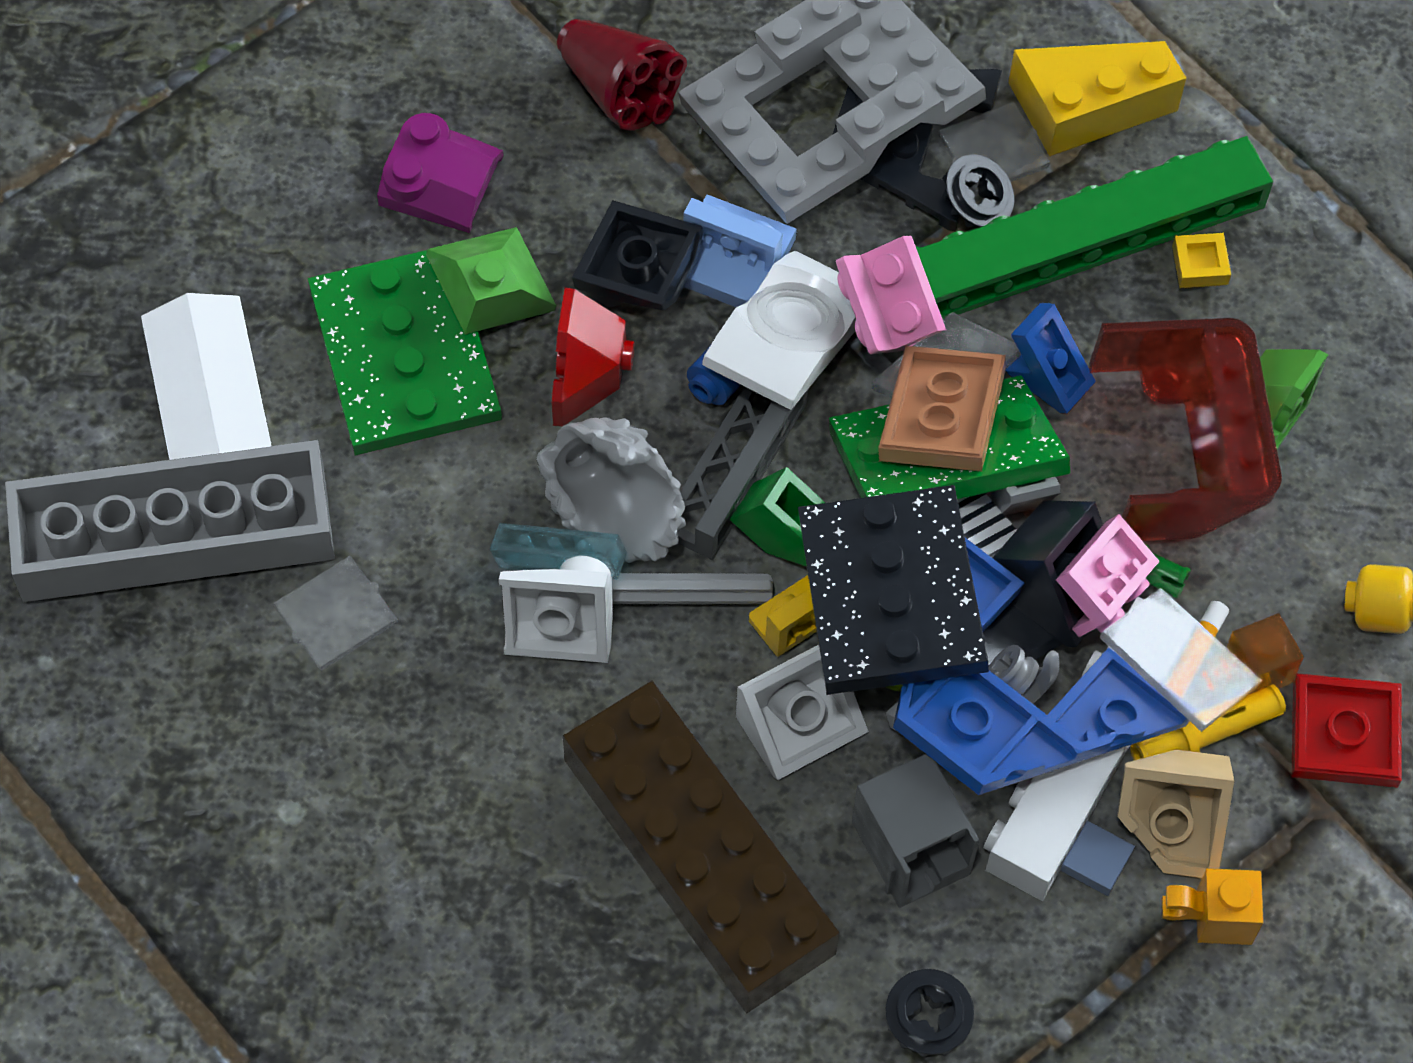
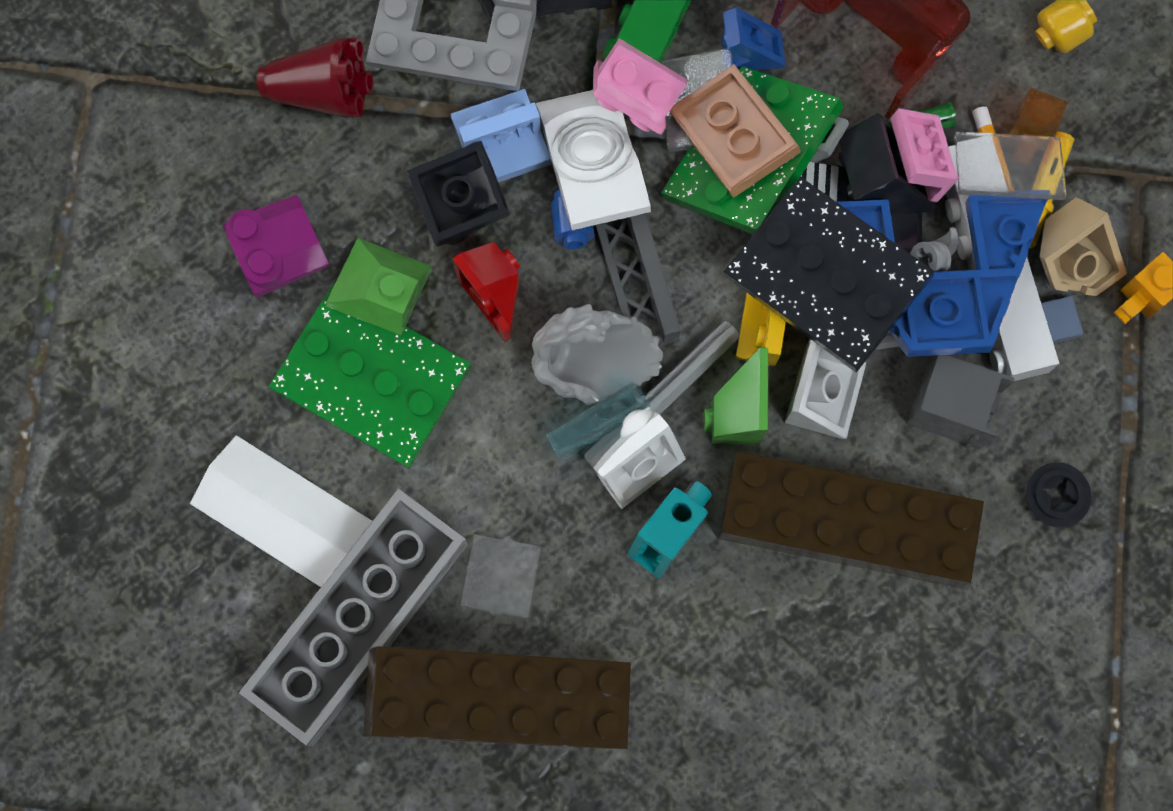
camera: 45 degrees left, 15 degrees up
(211, 688) = (496, 698): none -> dark brown brick
(522, 697) = (670, 528): none -> teal torso
(706, 651) = (741, 406): none -> bright green slope
(771, 514) = (699, 280): green slope -> none
(1347, 730) = (1112, 121): red tile -> none

